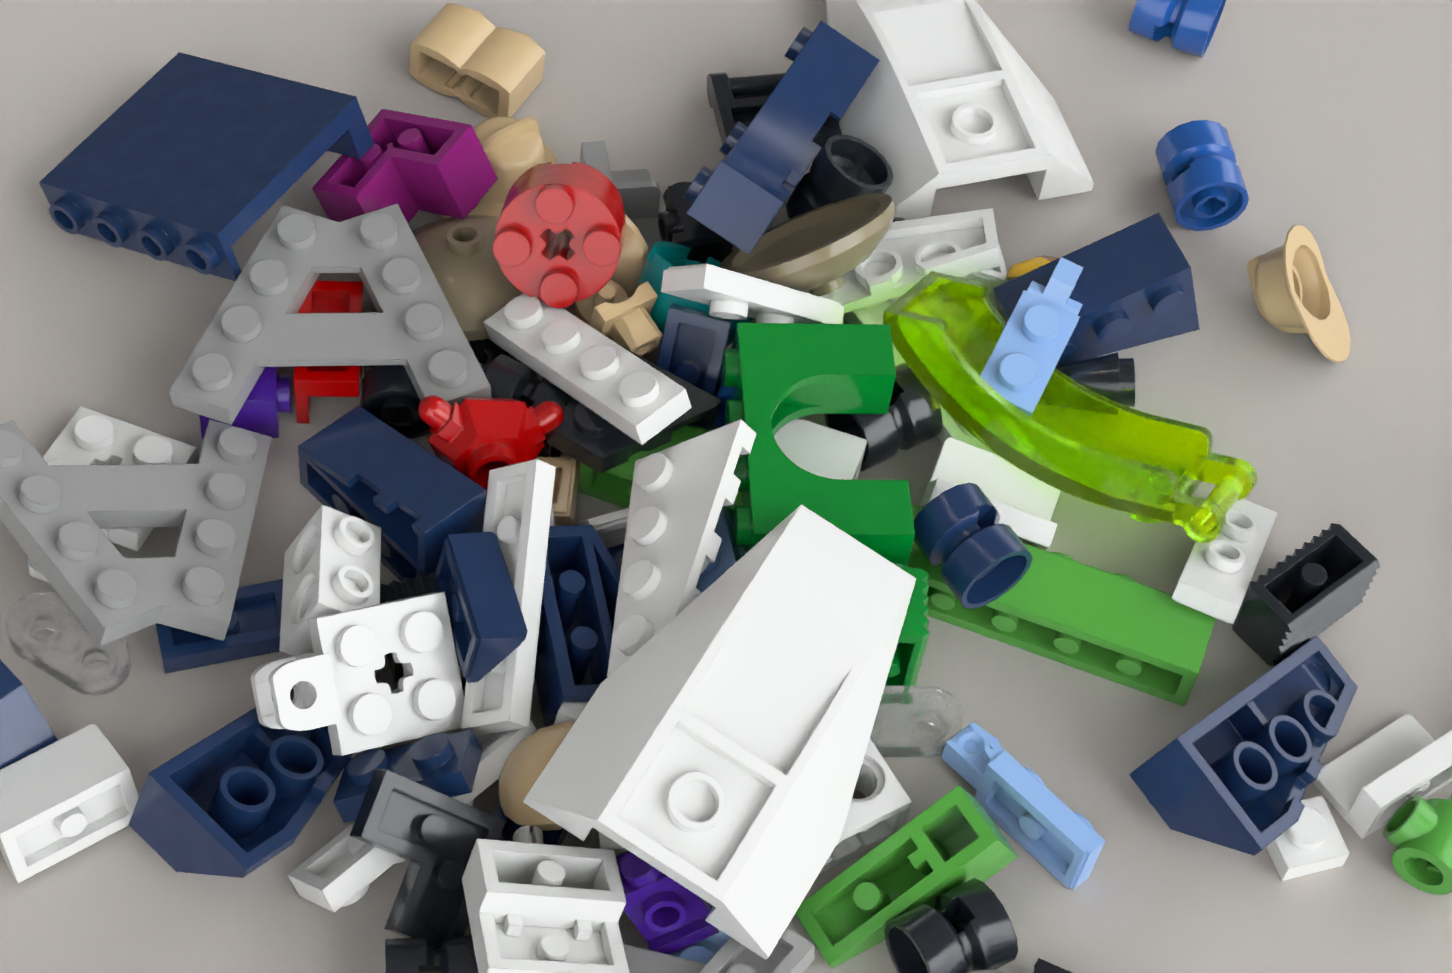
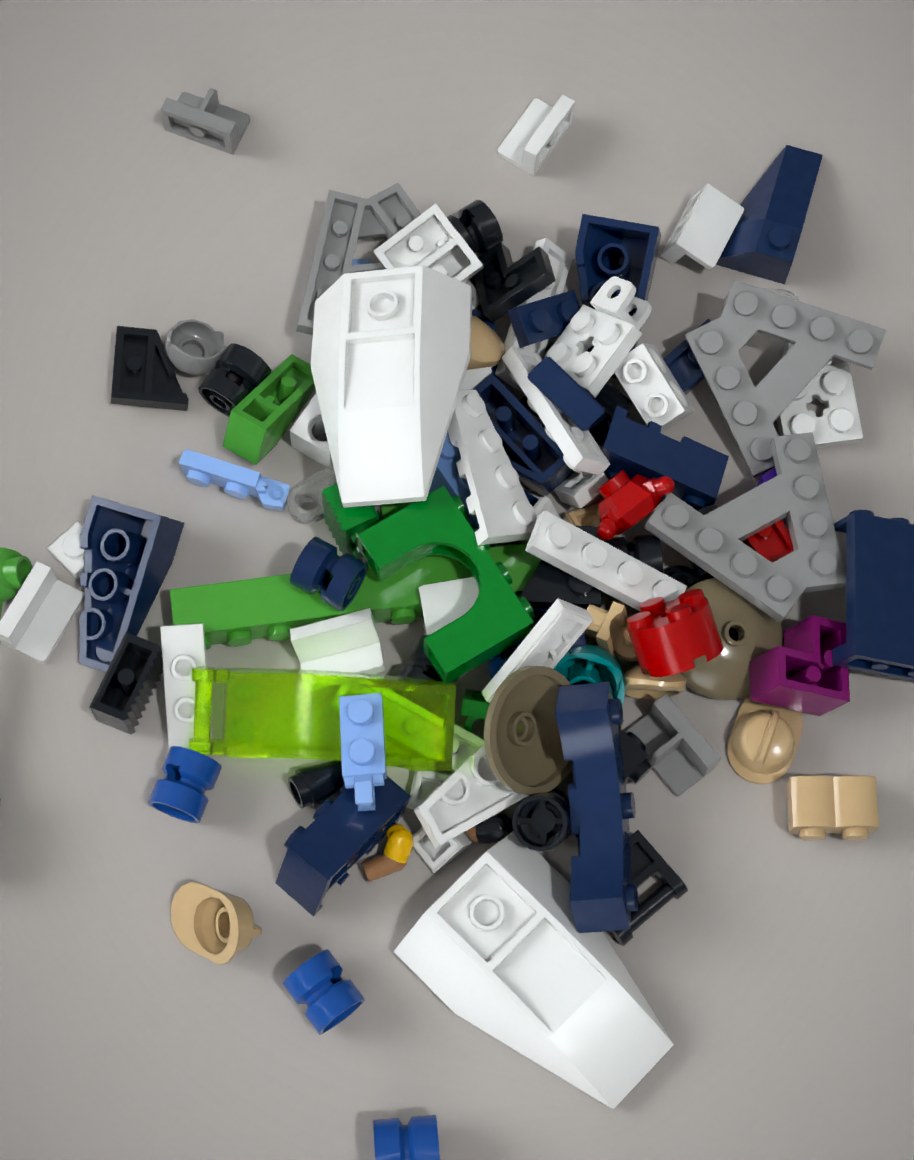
camera: 155 degrees right, 15 degrees up
(1284, 447) = (185, 783): none -> blue wheel

